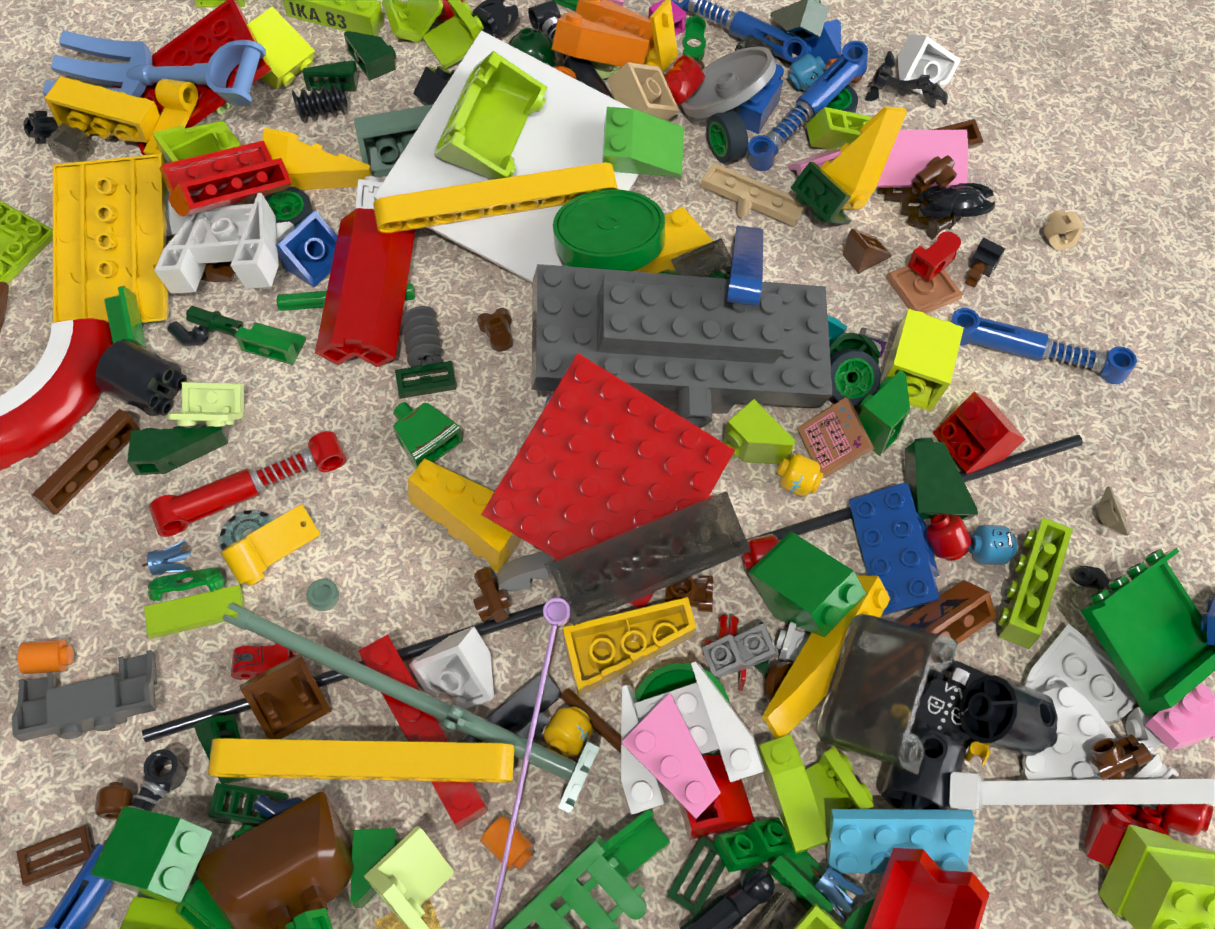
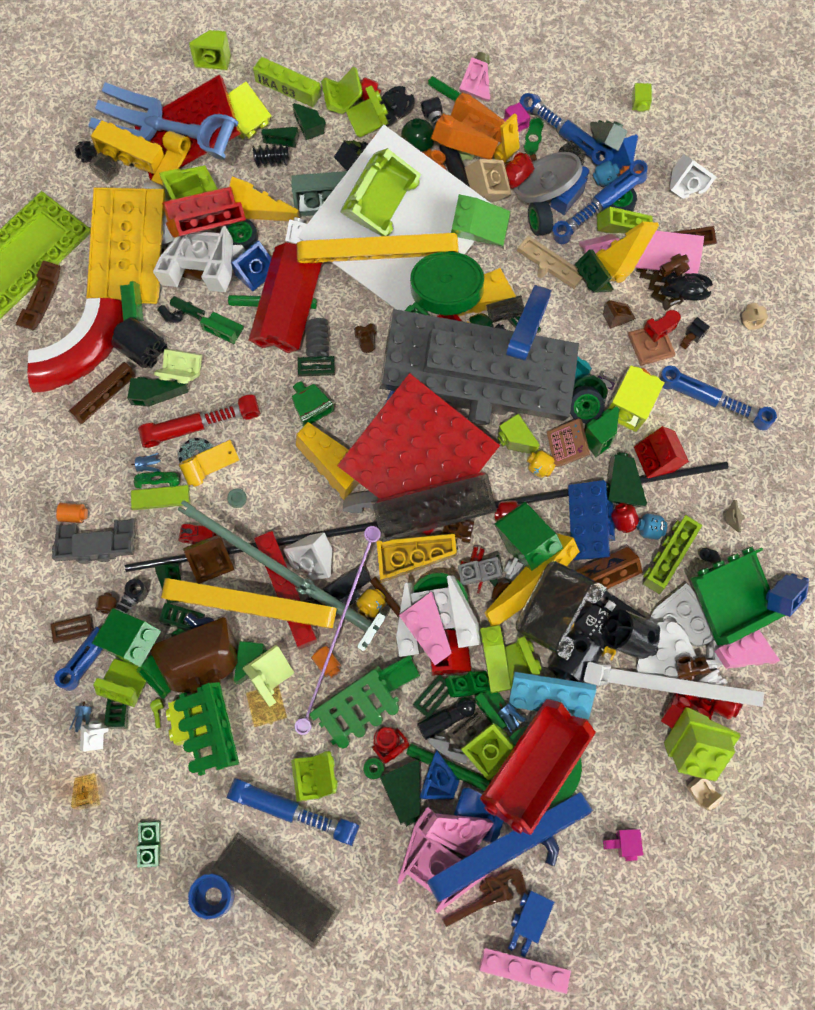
camera: 10 degrees right, 10 degrees up
(493, 601) = (338, 518): reddish brown plate -> none
(884, 77) = (657, 185): black piece -> none

